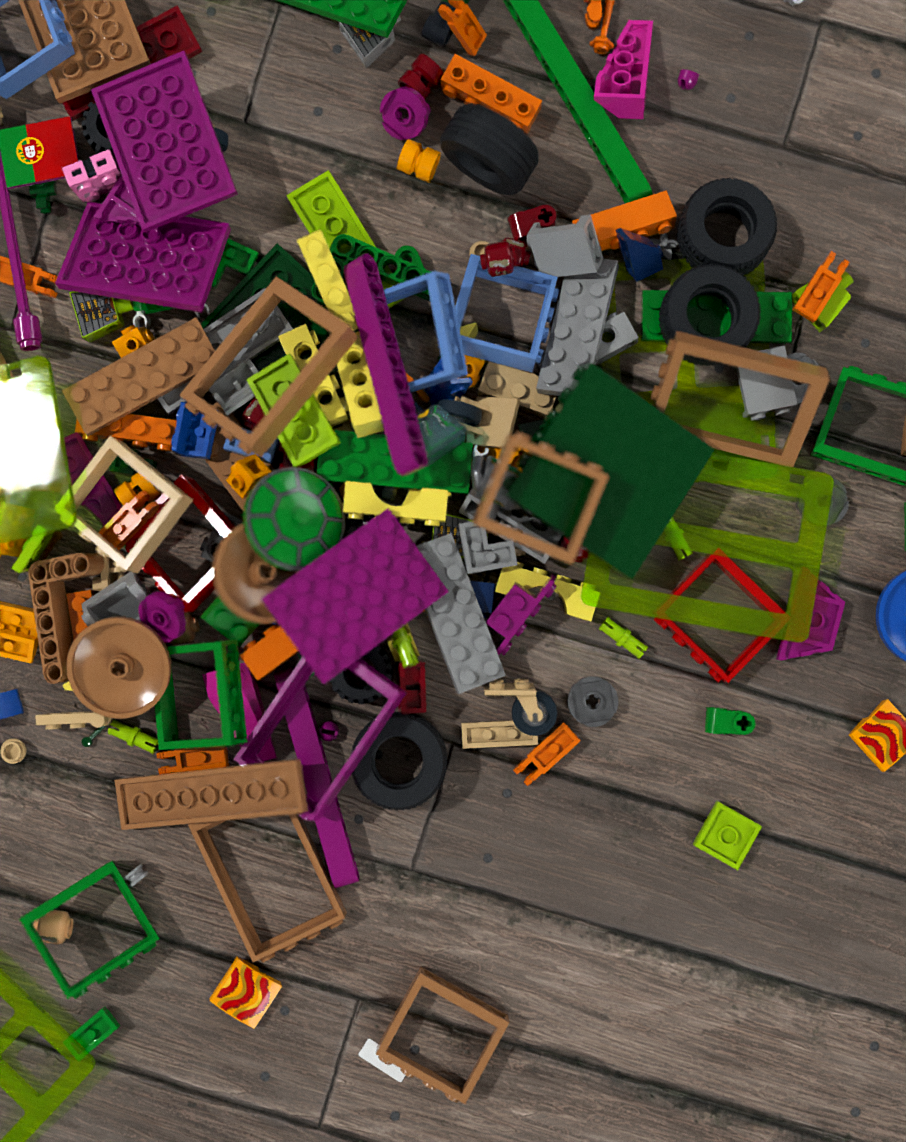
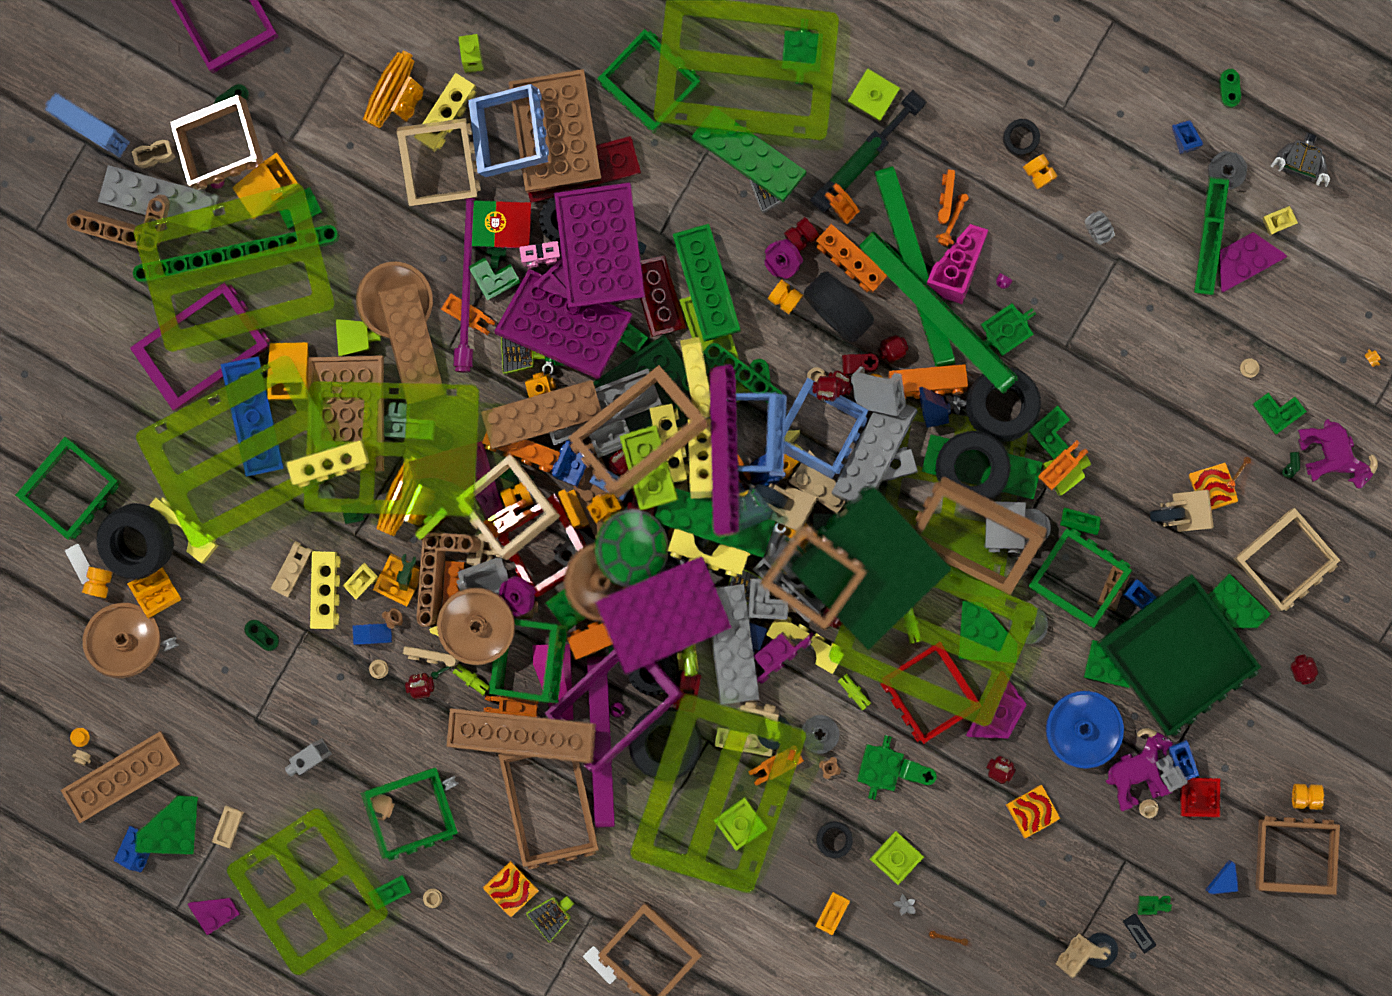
camera: 25 degrees right, 0 degrees up
(16, 625) = (405, 575): none -> dark green plate
(18, 676) = (396, 615): none -> medium nougat plate
(44, 230) = (493, 283): none -> green plate
(69, 760) = (420, 686): none -> dark red head
(149, 1027) = (432, 898): none -> tan plate
(212, 489) = (574, 509): none -> light orange slope
(261, 200) = (660, 299): none -> dark red slope
(304, 1016) = (551, 916): none -> torso
(315, 164) = (706, 282): none -> green plate
(490, 716) = (694, 861): none -> clear neon green door
(518, 839) = (737, 823): none -> lime plate
(570, 194) = (893, 348): none -> dark red head
(614, 748) = (833, 763): none -> medium nougat plate
(619, 129) = (938, 312): none -> green beam
(656, 845) = (848, 844): none -> black tyre
(662, 925) = (832, 913): none -> light orange plate
(678, 725) = (880, 767): none -> green plate
(706, 138) = (1007, 329): none -> green plate
(752, 893) = (905, 905): none -> light grey plant
(763, 517) = (981, 627): none -> green plate
(786, 253) = (1046, 431): none -> green plate
(795, 921) = (932, 934): none -> clear orange hinge
(833, 692) = (1001, 769): none -> dark red head
(856, 355) = (1080, 521): none -> green plate

